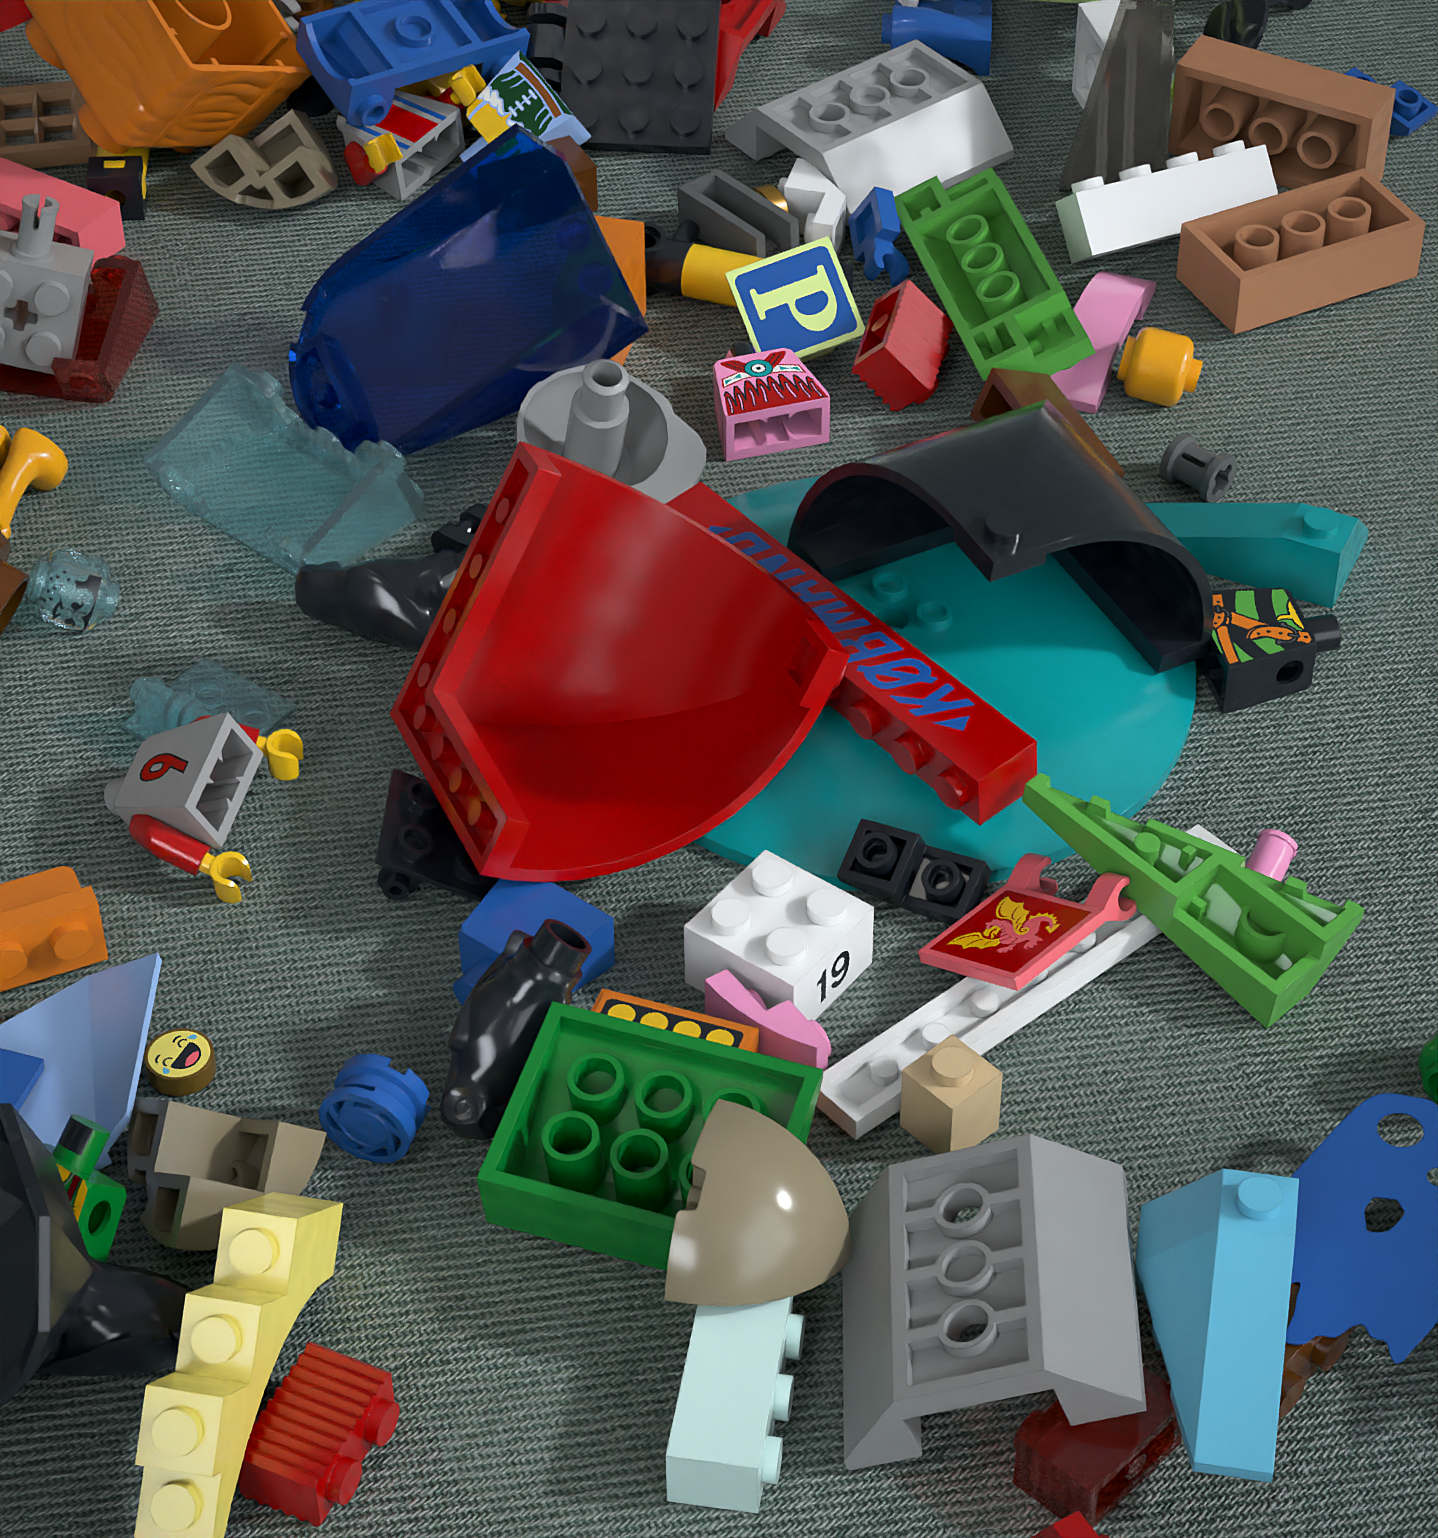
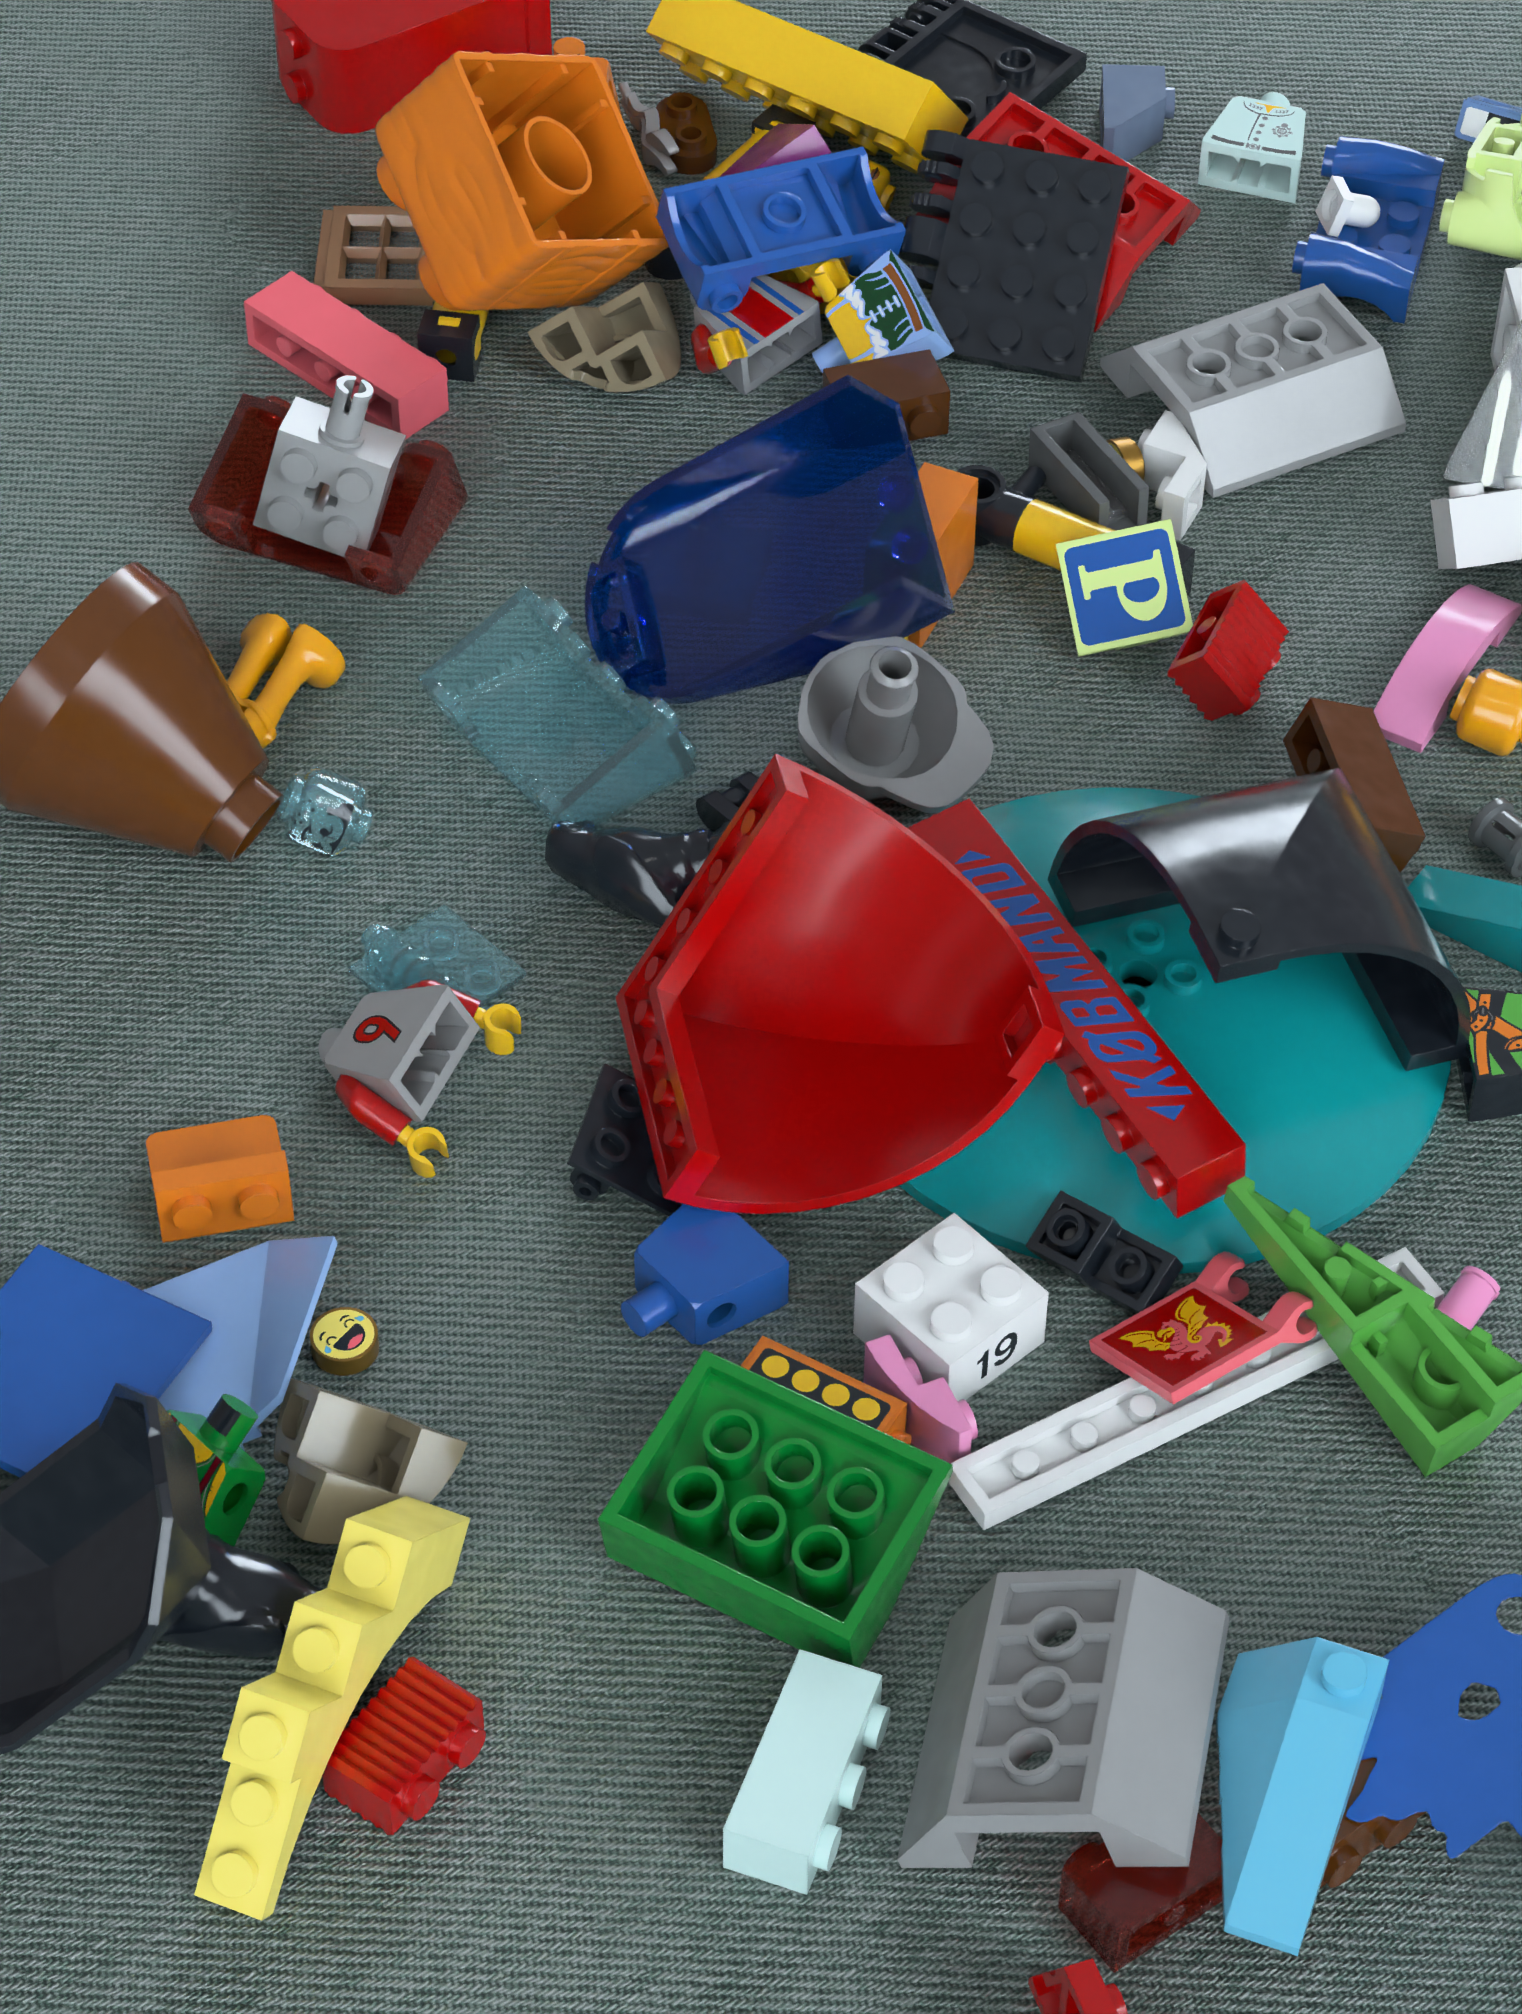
camera: 10 degrees right, 5 degrees up
(374, 1109) = (518, 1425): blue wheel -> none
(502, 1024) = (657, 1356): black animal -> none
(756, 1217) = (856, 1607): dark tan brick -> none
(767, 403) = (1073, 695): bright pink torso -> none
(873, 232) = (1230, 506): blue plate -> none
(950, 1097) = (1083, 1505): tan brick -> none
(992, 276) = (1339, 582): bright green slope -> none

